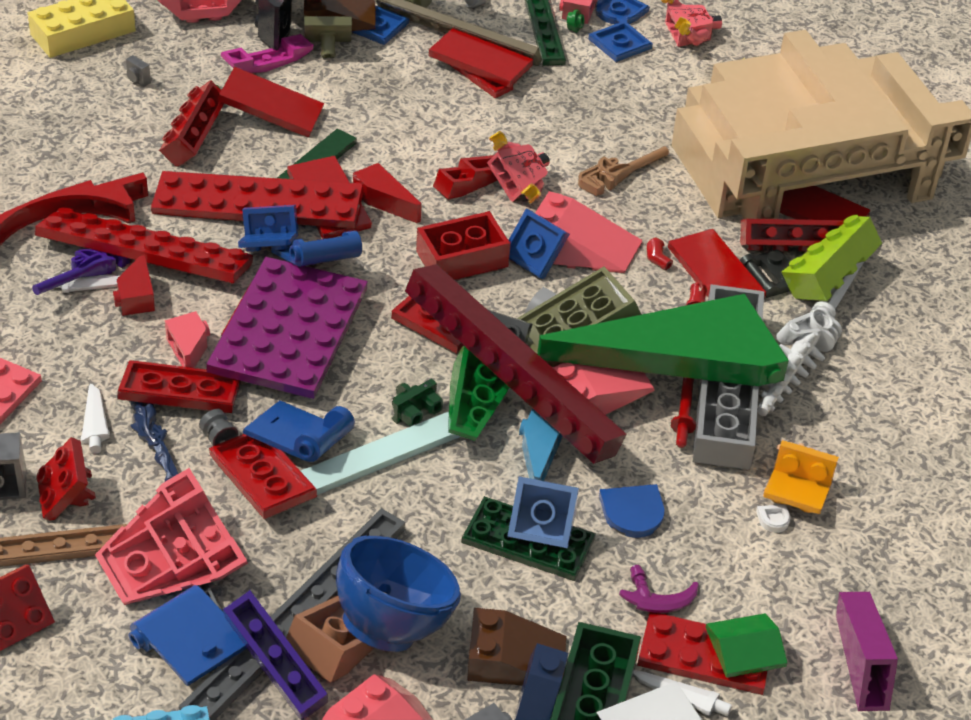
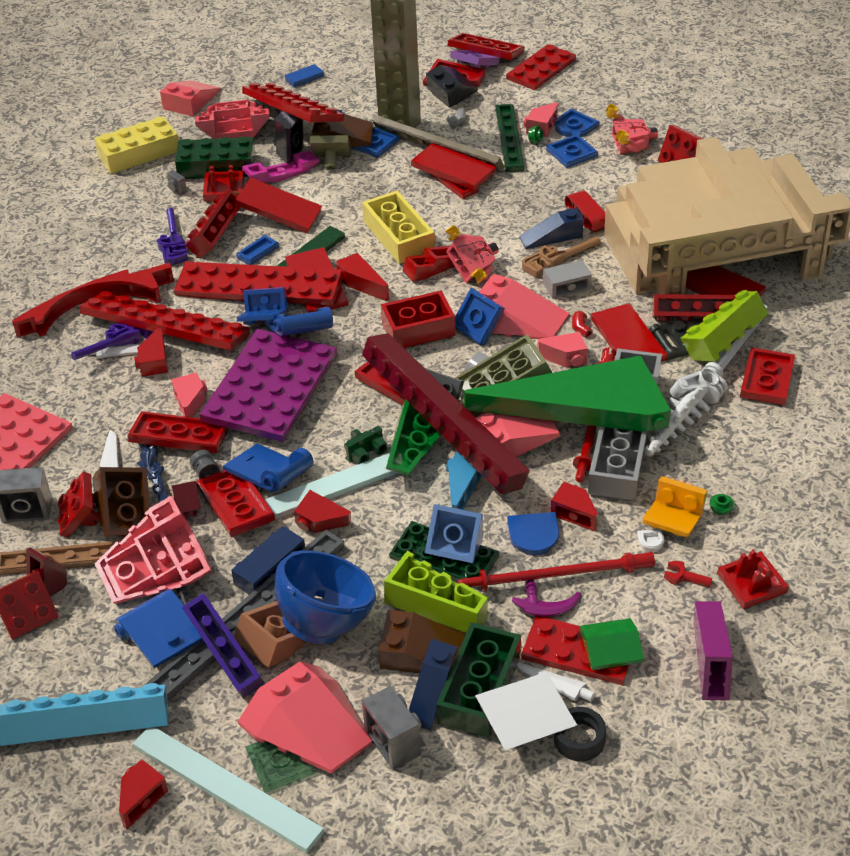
camera: 10 degrees right, 0 degrees up
(43, 564) = (51, 571): none -> dark red slope
(120, 472) = (120, 498): none -> reddish brown slope
(142, 151) = (174, 246): none -> dark purple piece
(183, 40) = (196, 156): none -> dark green brick
(195, 72) = (222, 181): none -> red plate
(203, 466) = (187, 498): none -> dark red slope
(249, 157) = (257, 250): none -> blue tile
(312, 547) = (265, 559): none -> dark blue brick
(372, 488) = (320, 514): none -> red slope
(423, 130) = (397, 226): none -> light yellow brick
(526, 588) = (421, 590): none -> lime wedge
(616, 136) = (557, 228): none -> dark blue slope
(636, 198) = (567, 279): none -> light grey brick
(646, 284) = (564, 349): none -> coral slope
(649, 115) = (591, 212): none -> red beam
(681, 477) = (574, 506): none -> red slope
(750, 545) = (626, 562): none -> red bar
(751, 38) = (678, 145): none -> red plate
(817, 559) = (684, 575): none -> red bar
(852, 473) = (721, 504): none -> green plate
(886, 318) = (767, 376): none -> red plate
(900, 564) = (752, 579): none -> red plate

